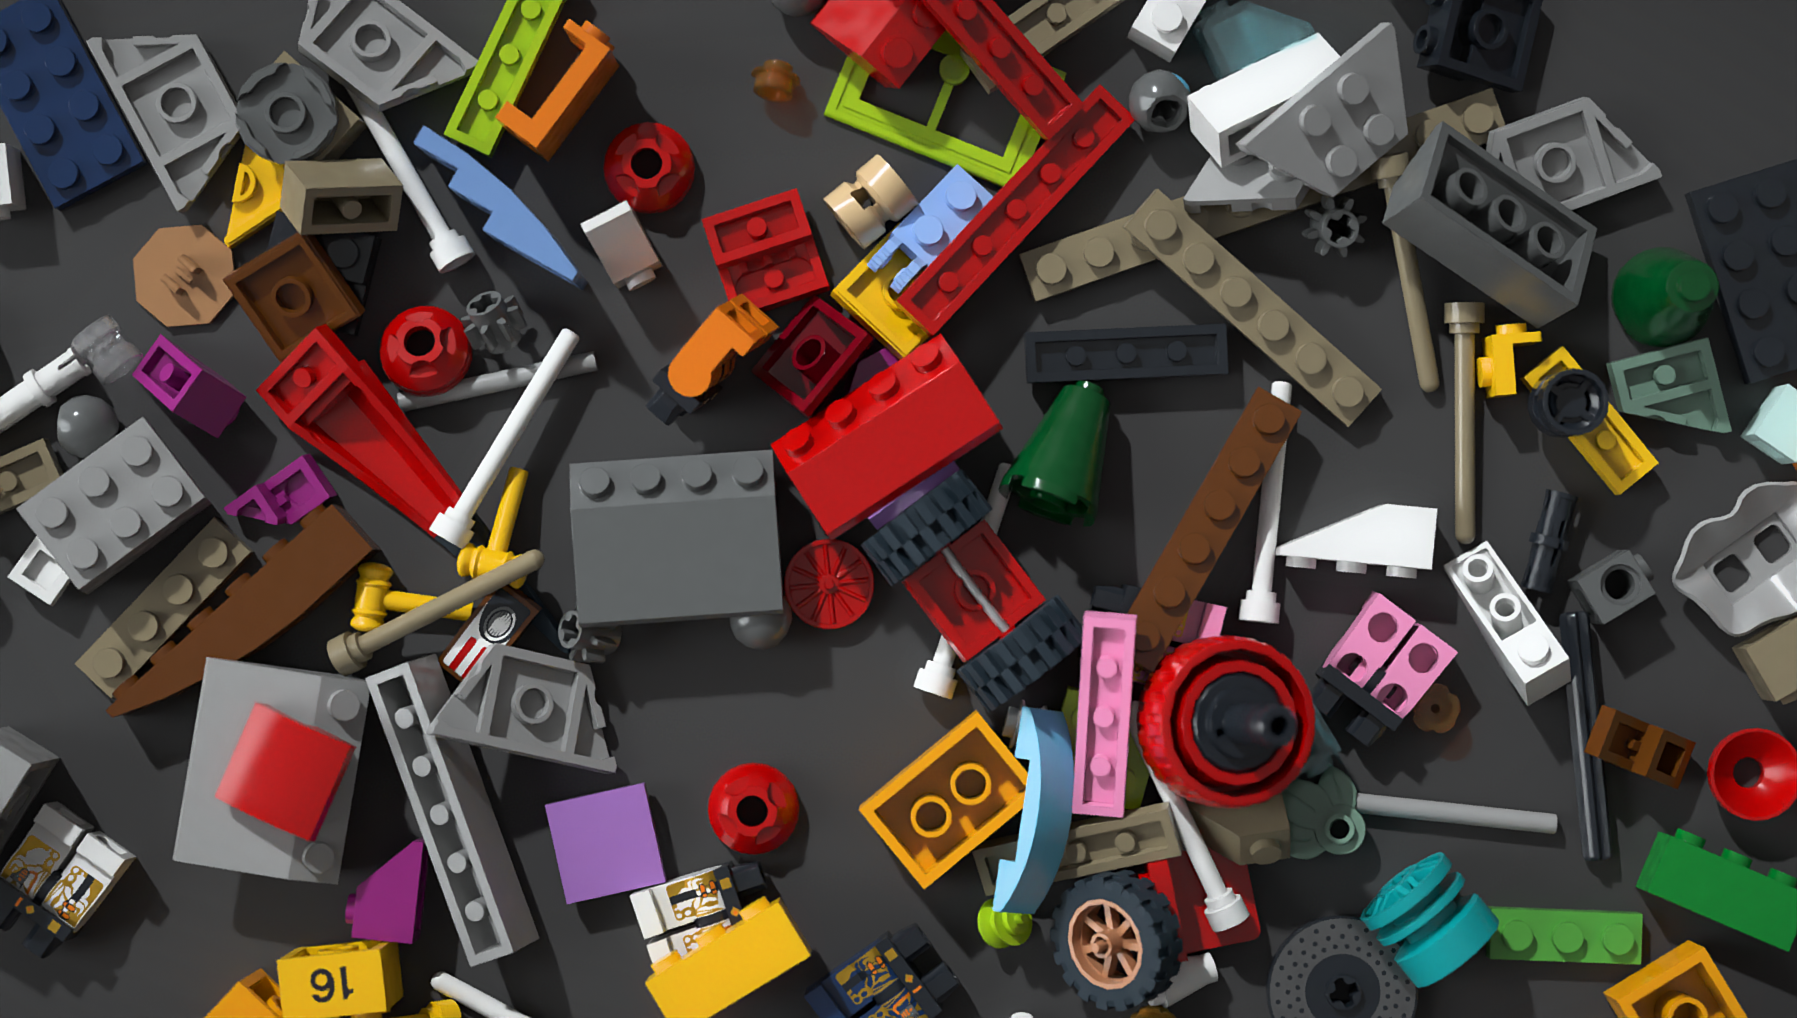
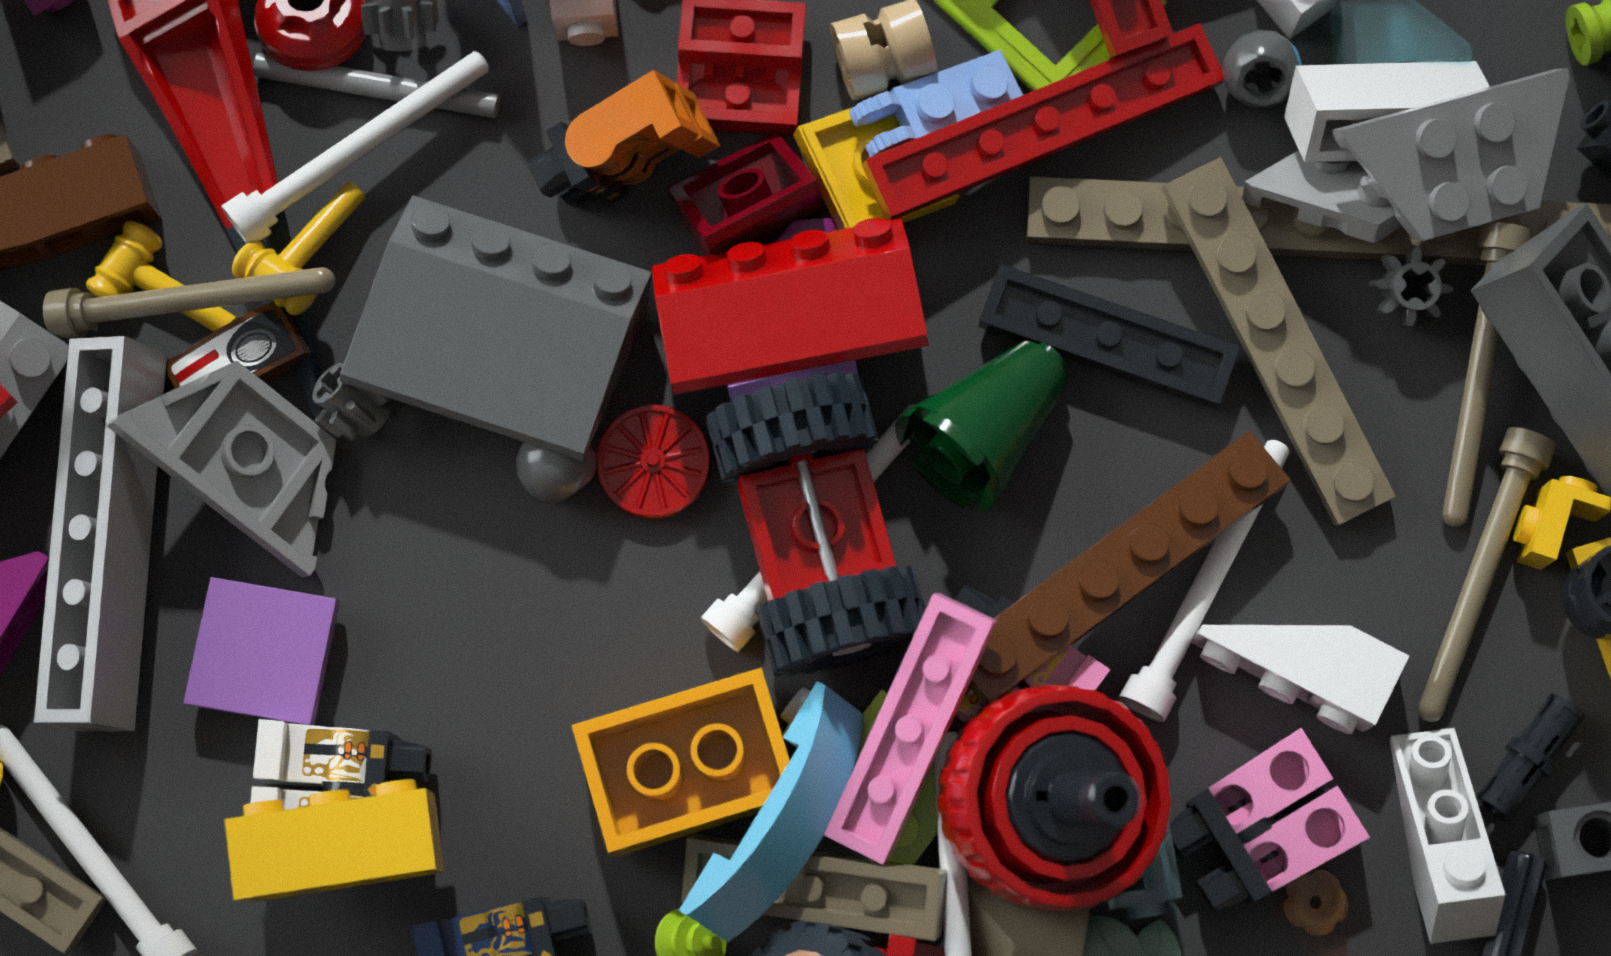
camera: 30 degrees right, 10 degrees down
(286, 495) = (82, 111): magenta slope -> none
(773, 789) = (473, 712): red piece -> none

